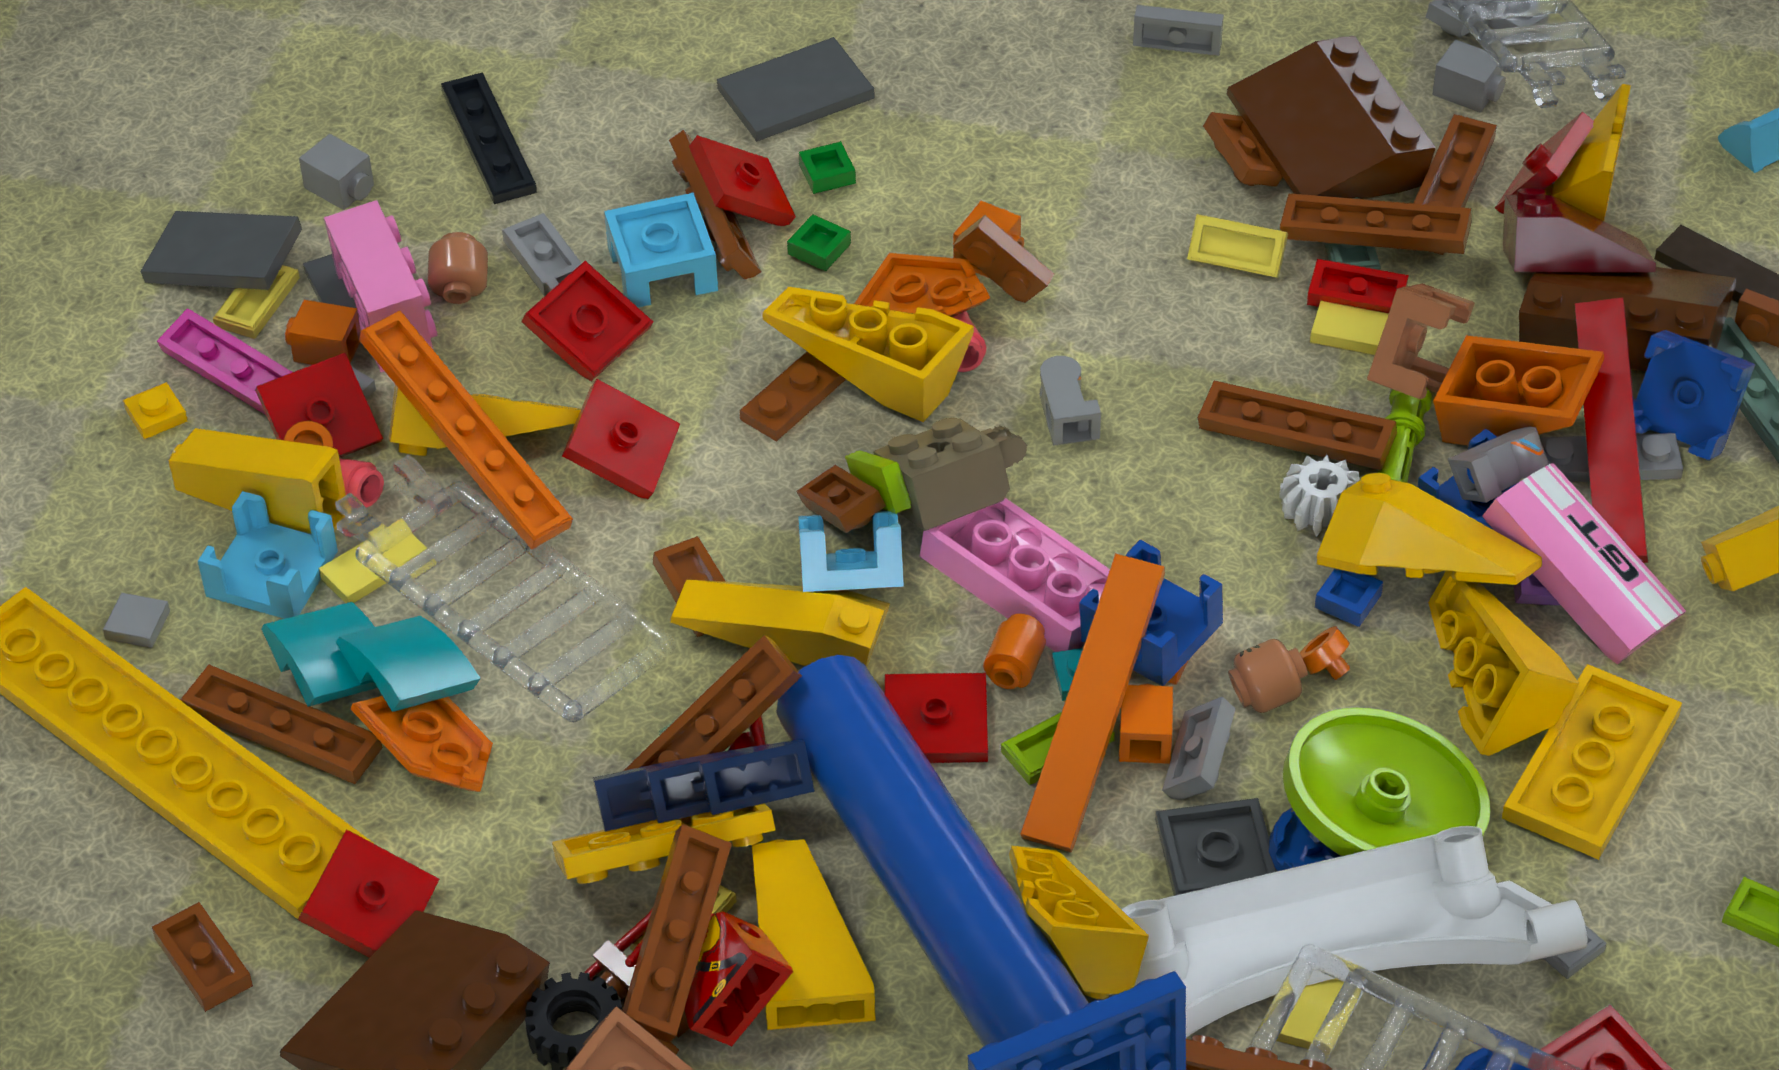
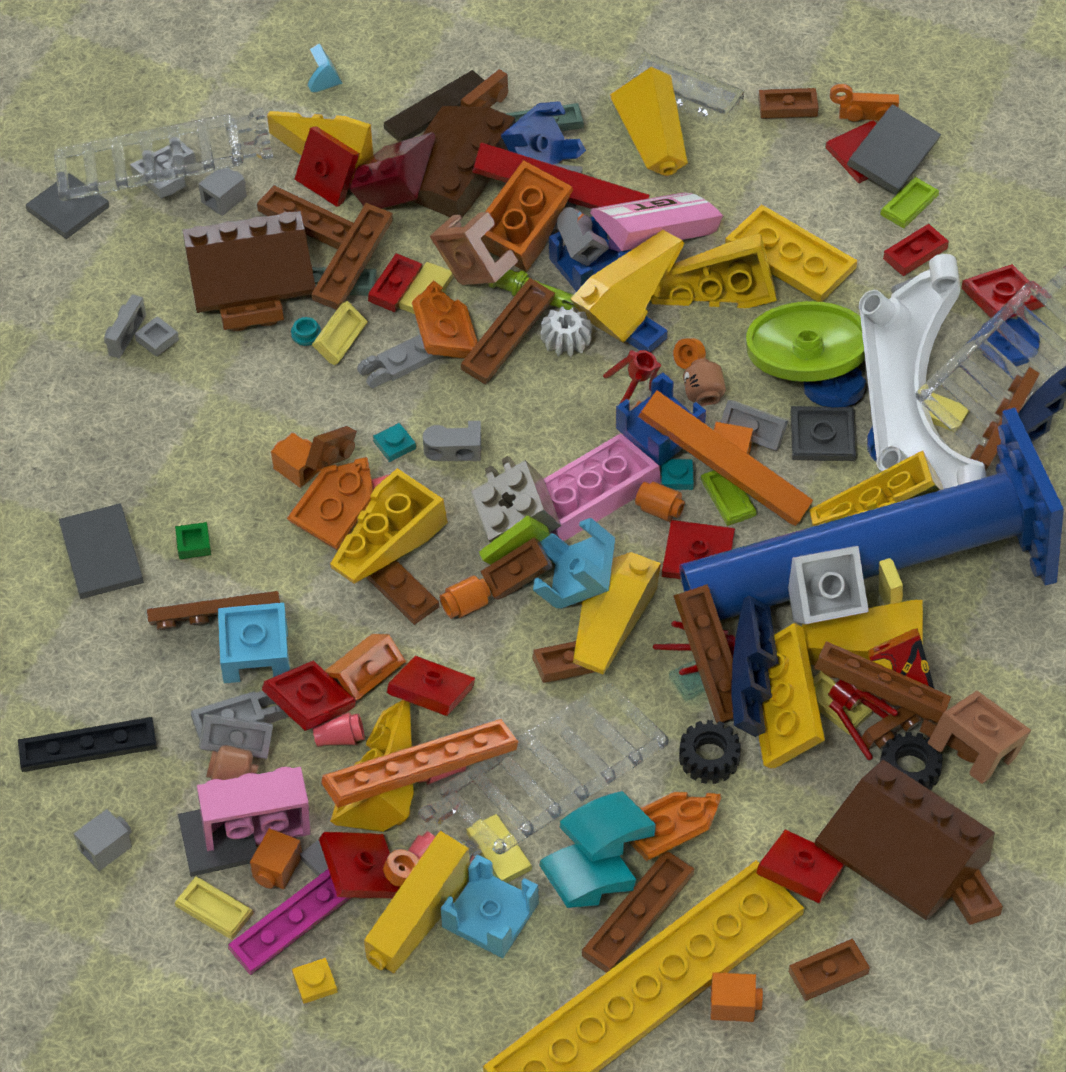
camera: 80 degrees left, 5 degrees up
(136, 620) = (520, 1001): light grey tile -> none
(144, 844) = (735, 997): none -> orange brick
(221, 250) = (163, 923): dark grey tile -> none
(506, 257) = (237, 733): none -> light grey plate
(539, 368) = (340, 731): none -> coral cone
(553, 747) = (704, 768): none -> black tyre
(650, 374) = (367, 664): none -> orange panel
(741, 182) = (201, 586): red plate -> none
(785, 455) = (465, 597): none -> orange brick
(819, 242) = (266, 554): green plate -> none
(830, 834) = (827, 586): none -> white slope
(886, 943) = (889, 582): none -> light yellow tile
(1057, 338) = (394, 442): none -> teal plate
(1174, 66) = (156, 336): none -> light grey plate
(1216, 325) = (396, 362): none -> light grey hinge
(1235, 208) = (305, 331): none -> teal plate
(1237, 569) = (640, 368): none -> red plant
(1289, 347) = (443, 323): none -> orange tile
(1665, 935) = (915, 249): none -> red plate

